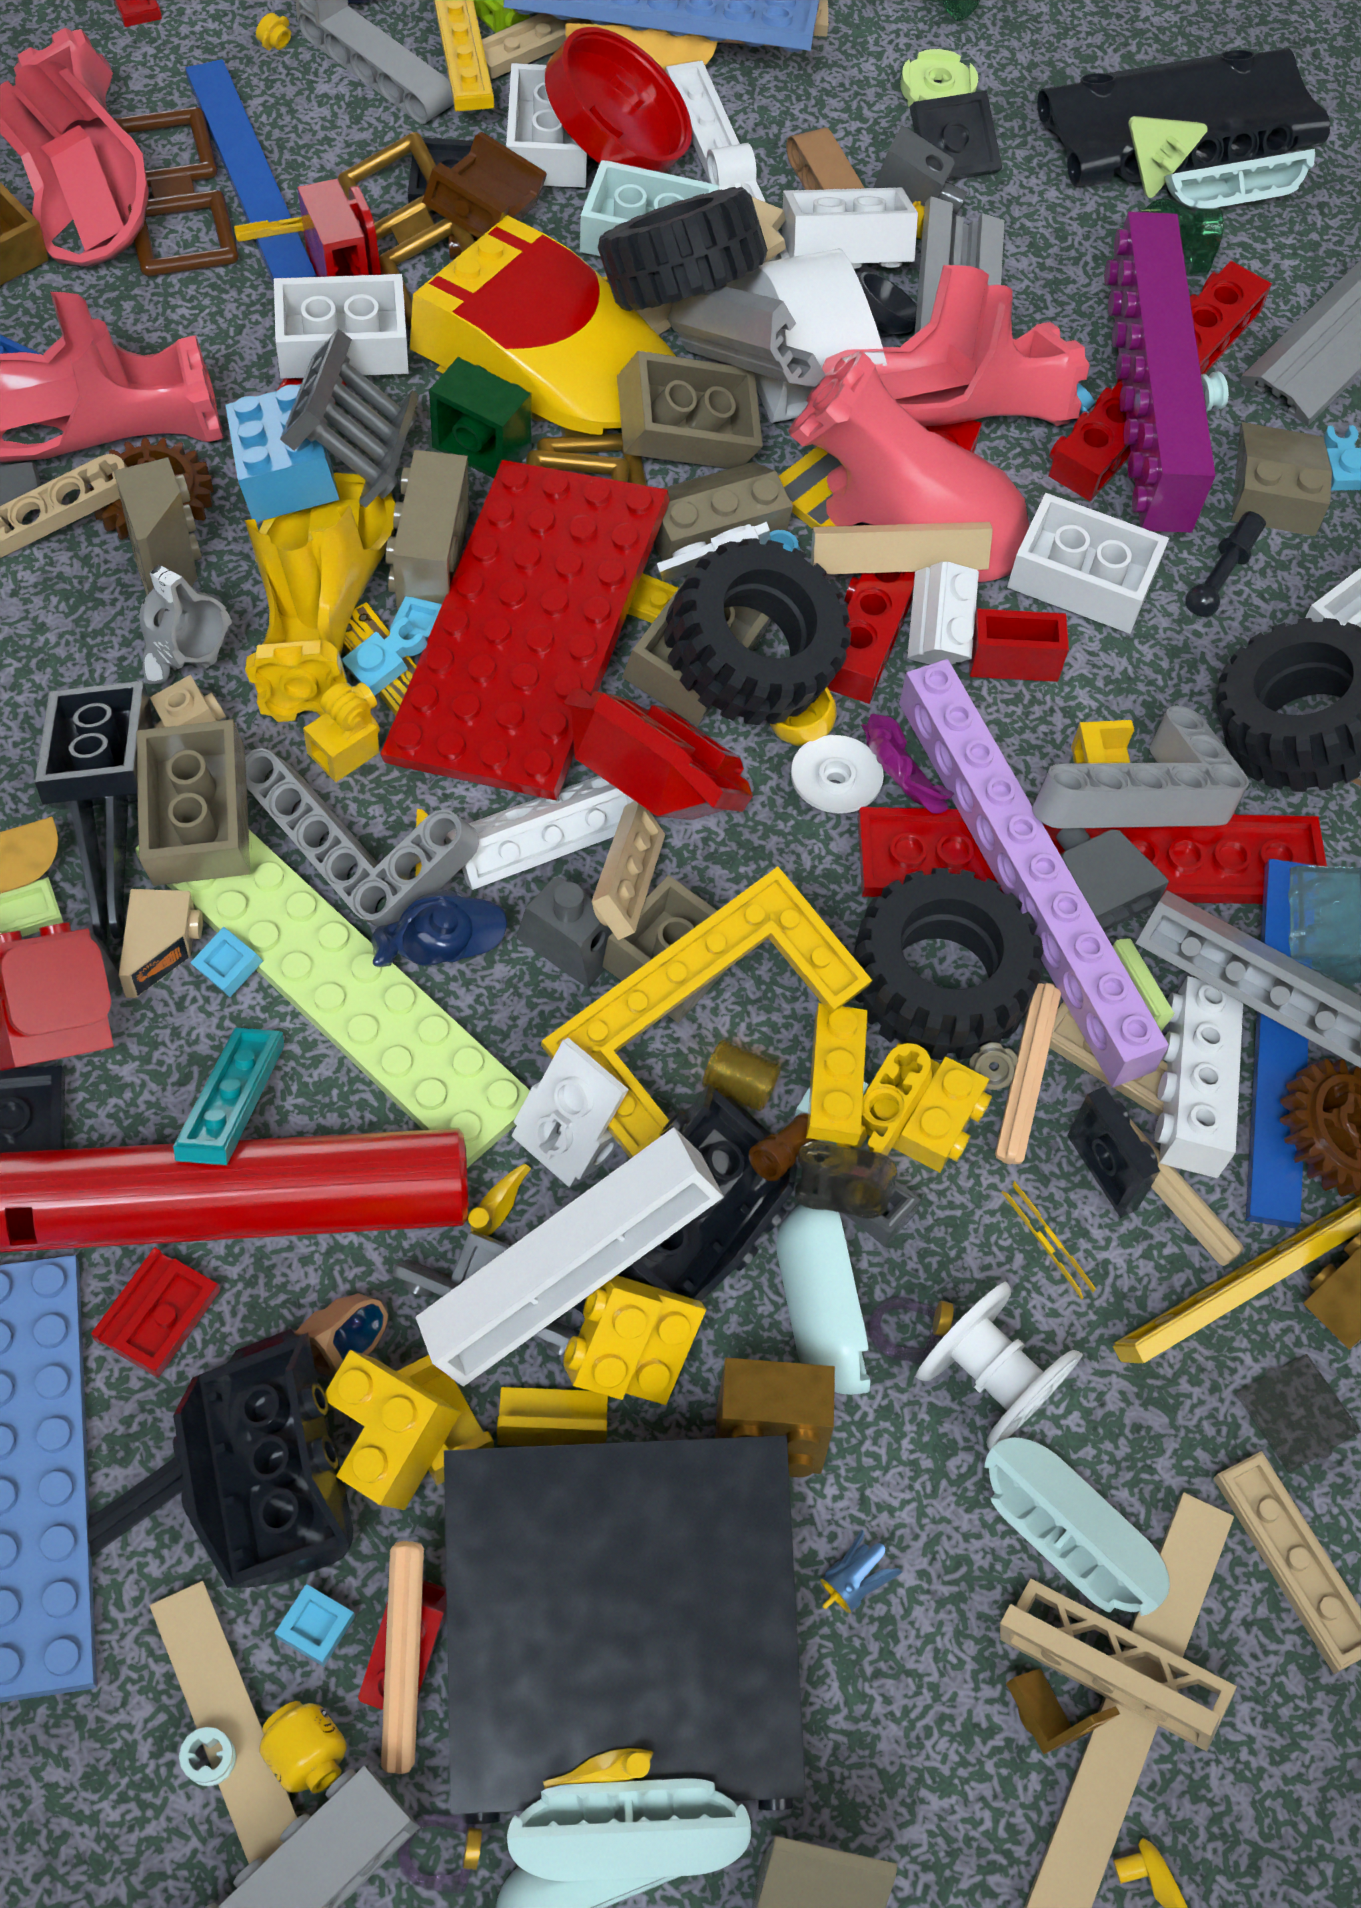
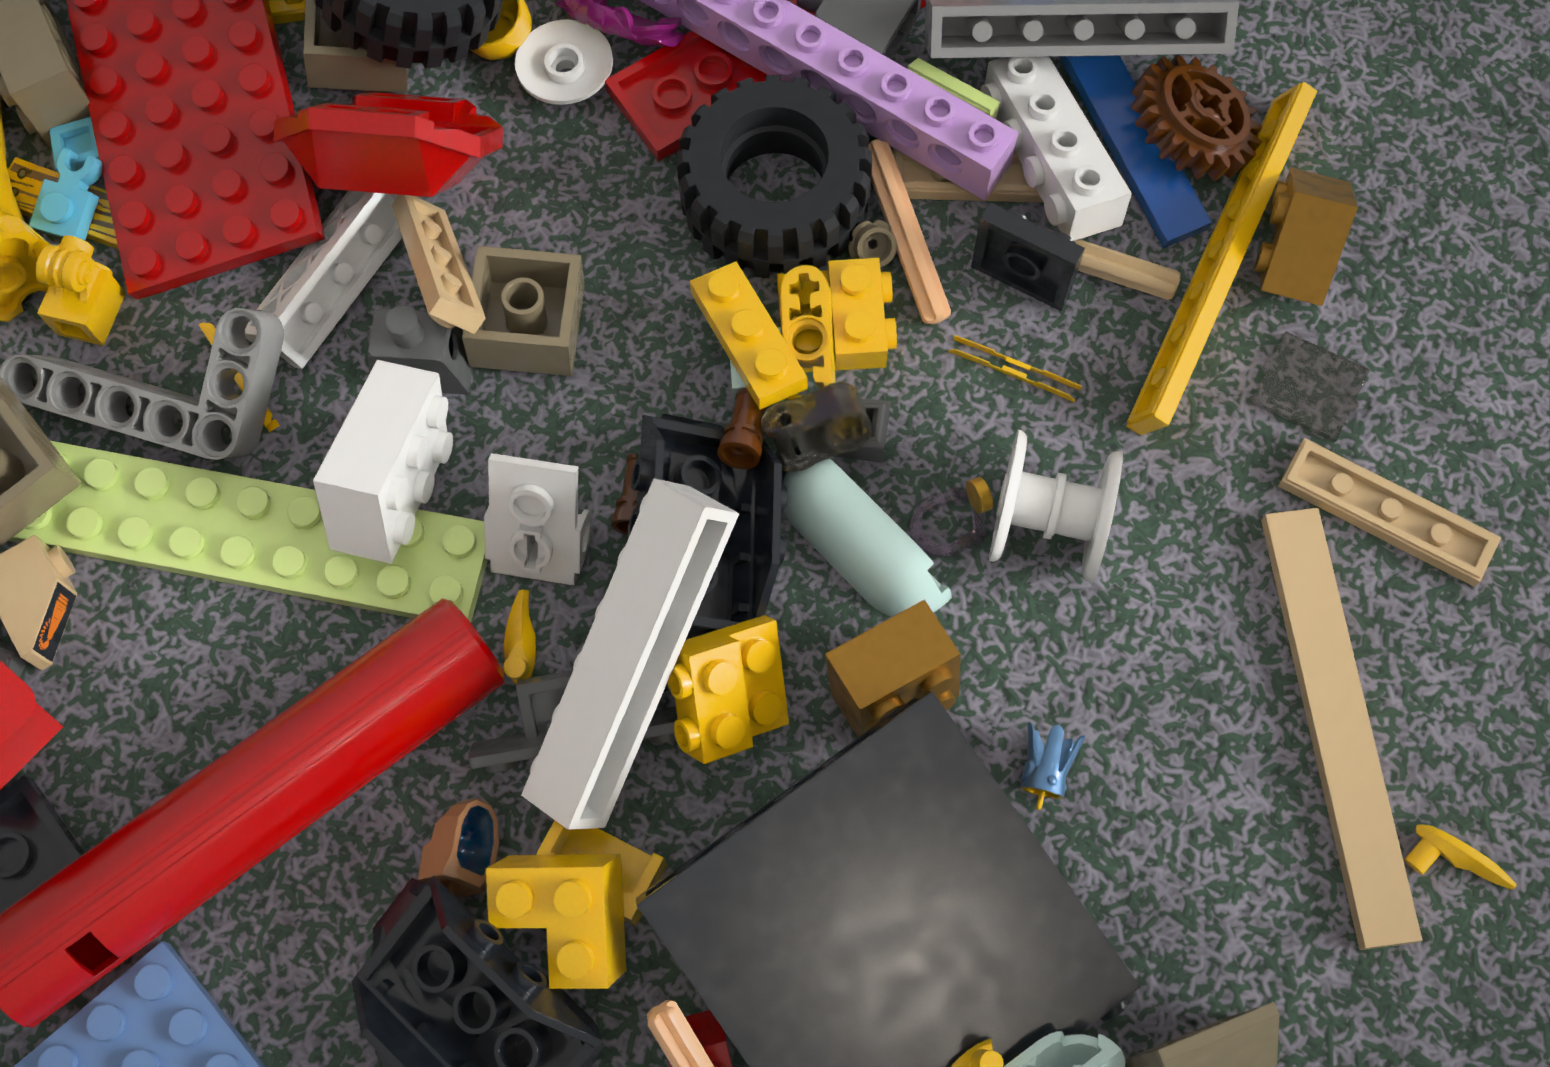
camera: 25 degrees left, 10 degrees up
(156, 1312) = (274, 943): red plate -> none
(226, 961) = (116, 578): medium azure plate -> none
(229, 1097) = (208, 706): teal tile -> none
(440, 930) = (297, 425): dark blue hair -> none
(484, 996) = (383, 462): none -> white brick
(551, 1417) = (698, 801): yellow panel -> none
(741, 1074) = (660, 388): clear yellow piece -> none
(763, 911) = (589, 227): yellow plate -> none
(1045, 1717) = (1279, 780): pearl gold bracket -> none
(1075, 1528) = (1201, 603): light aqua brick -> none
(1110, 1674) = (1308, 707): tan fence -> none

